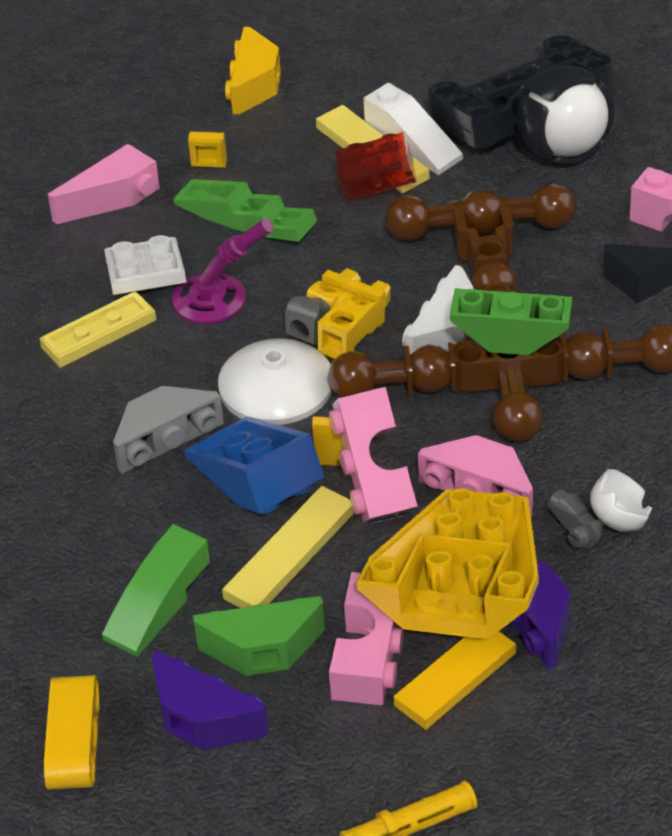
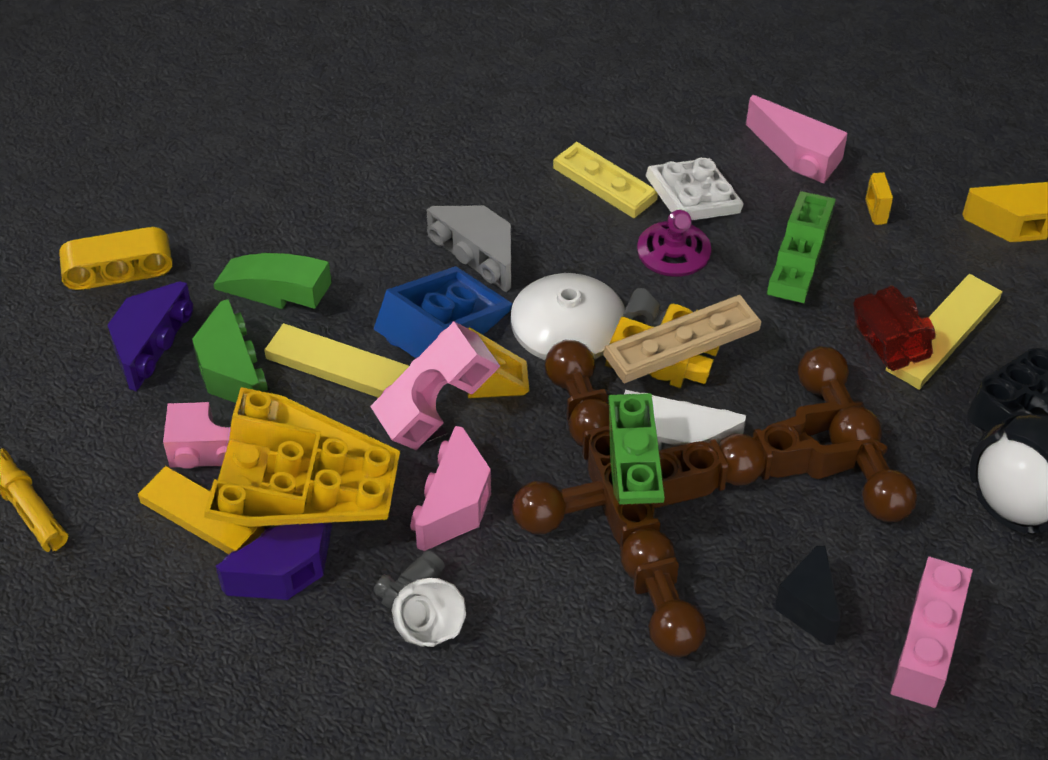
camera: 75 degrees right, 5 degrees up
(360, 286) = (681, 338): none -> tan tile
(396, 112) = (979, 351): white slope -> none

